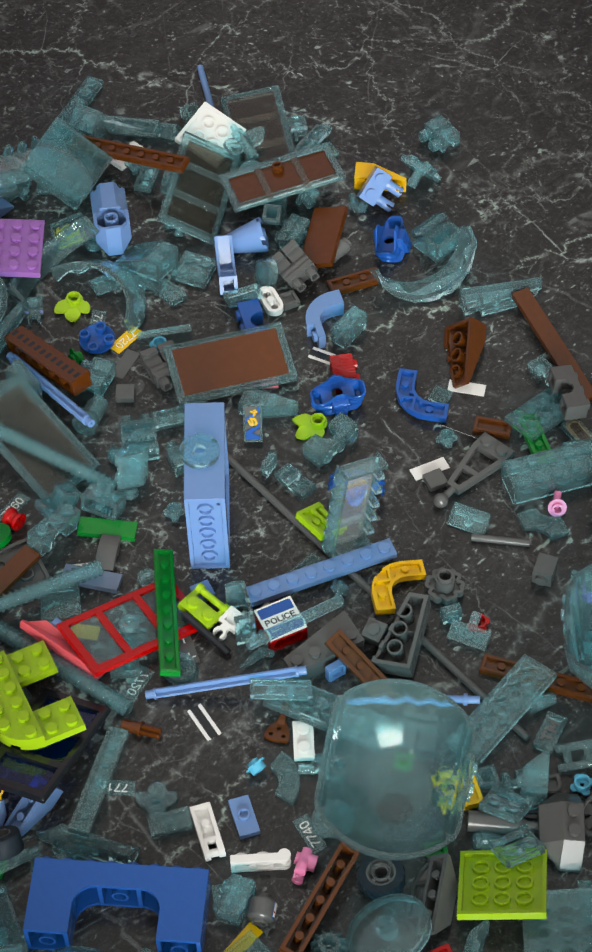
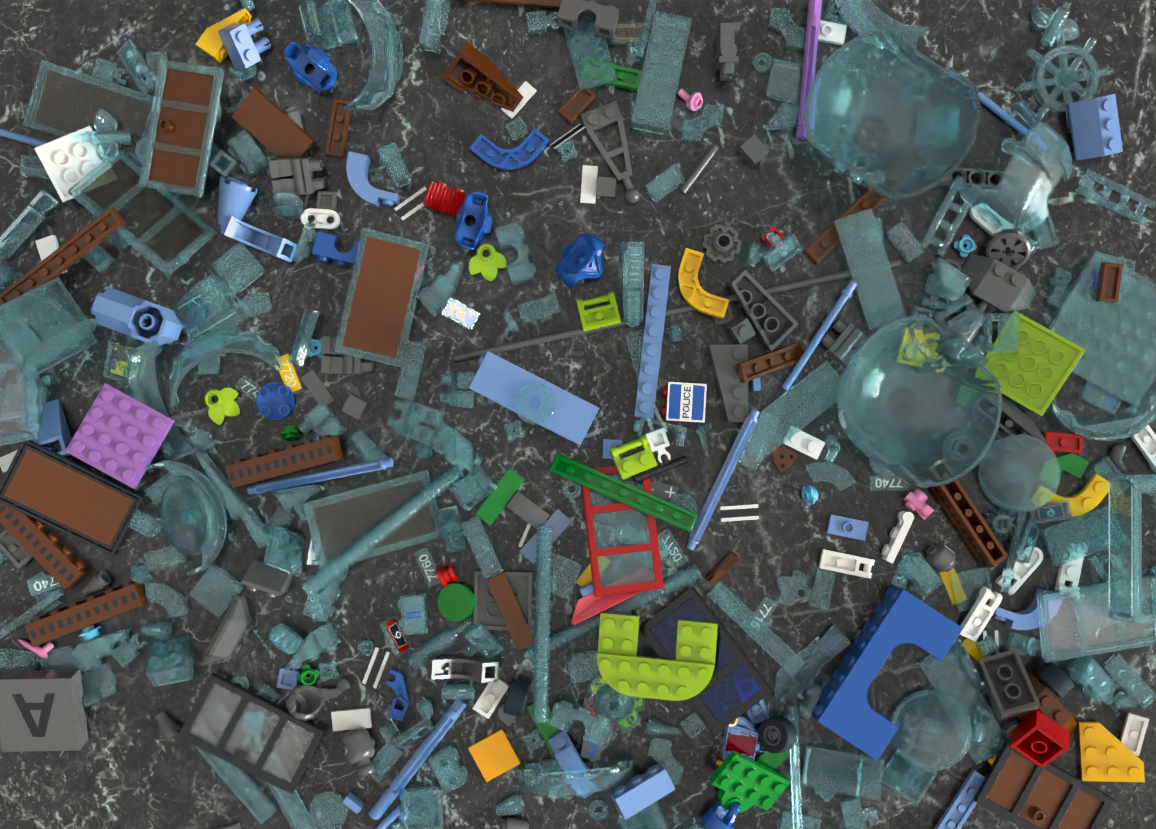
camera: 65 degrees left, 35 degrees up
(294, 622) = (701, 394): clear light blue axle -> none

